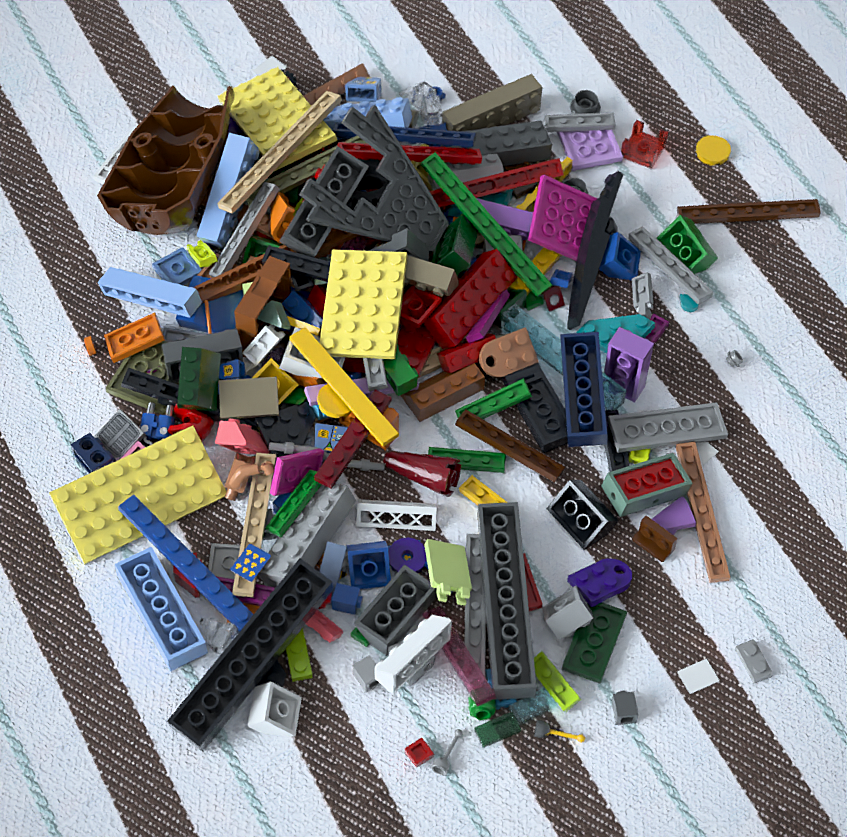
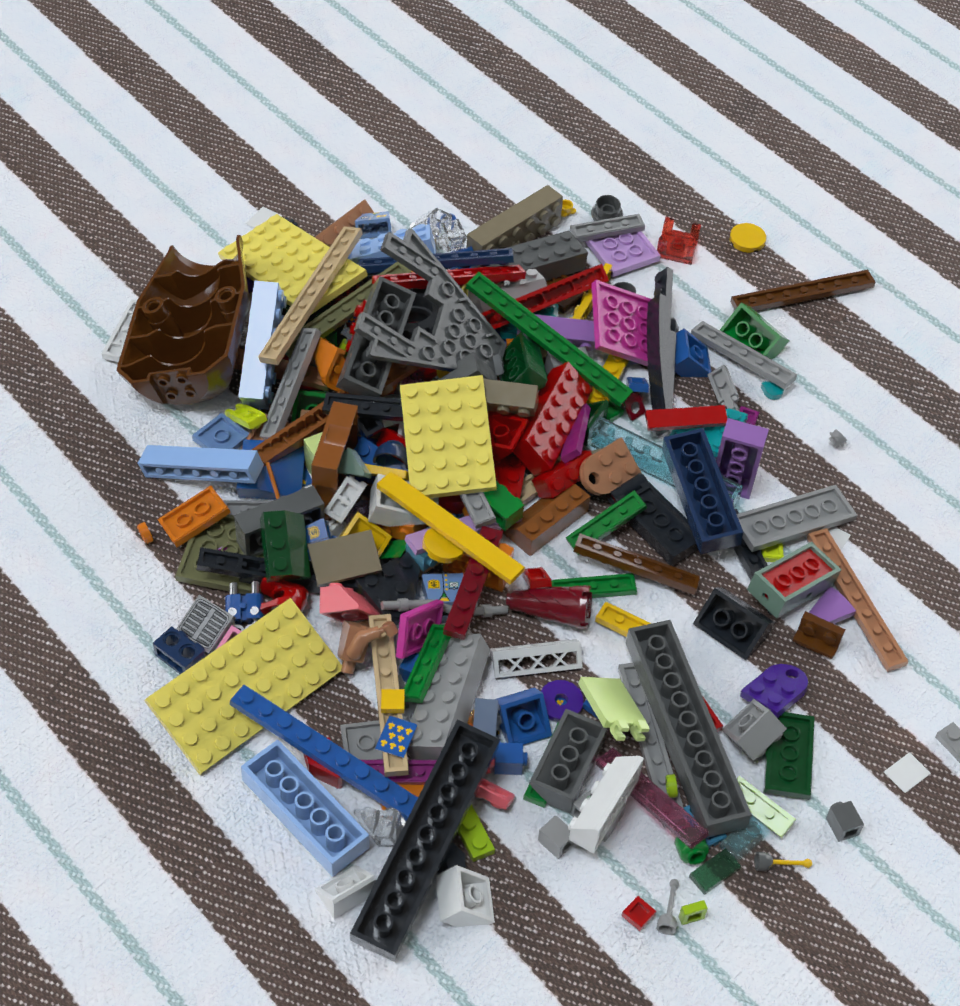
camera: 15 degrees left, 5 degrees down
(176, 685) = (346, 890): none -> white slope
(255, 531) = (392, 700): none -> yellow tile
(313, 306) = (393, 448): none -> dark blue helmet
(416, 443) = (537, 578): none -> red tile
(434, 239) = (498, 364): none -> dark grey tile
(465, 760) = (692, 912): none -> lime tile
(477, 650) = (671, 785): none -> lime tile
(549, 96) = (567, 208): none -> yellow plate
(594, 317) = (686, 418): none -> red tile

